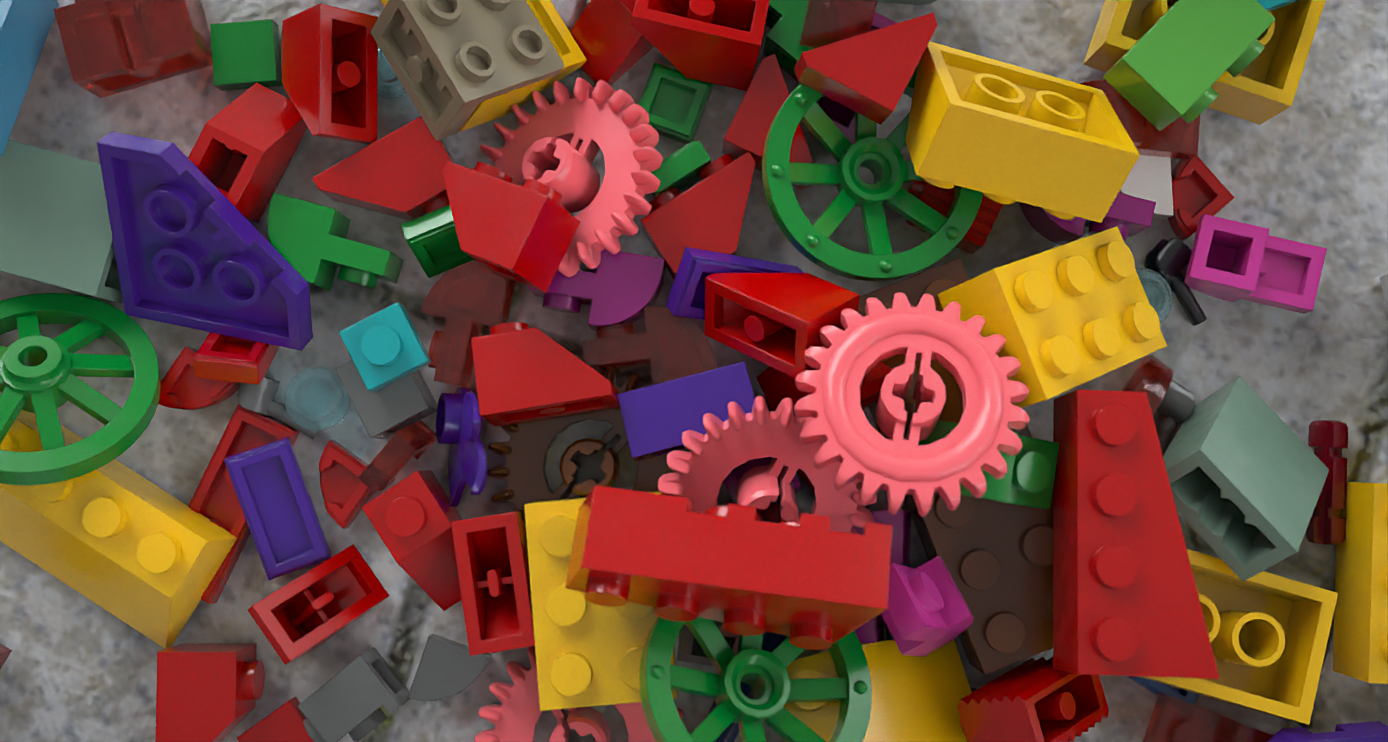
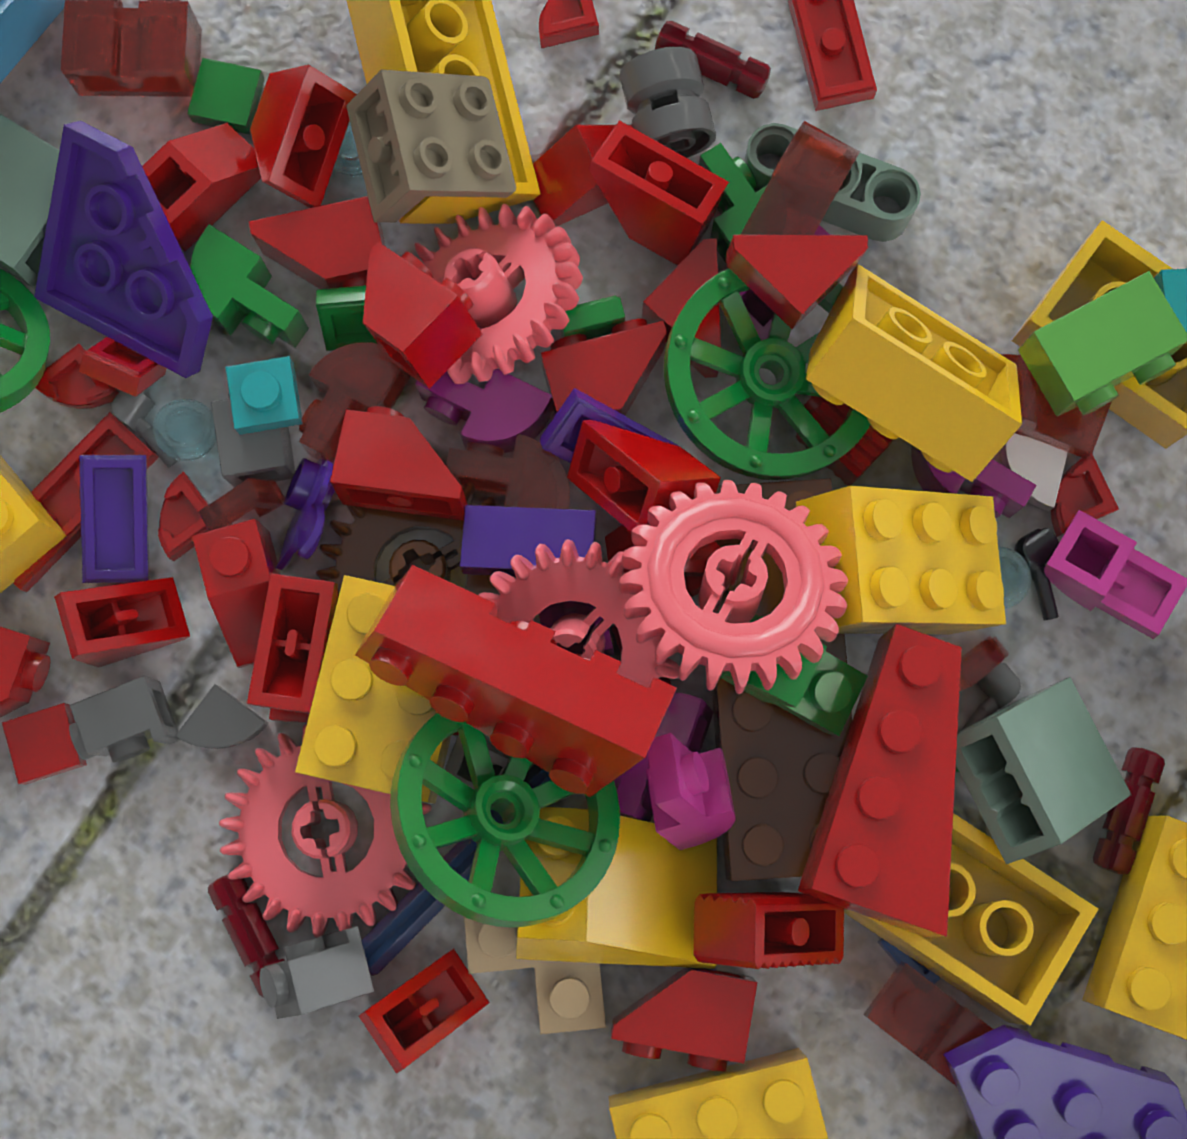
camera: 20 degrees right, 5 degrees down
(674, 103) = (610, 259): green tile -> none

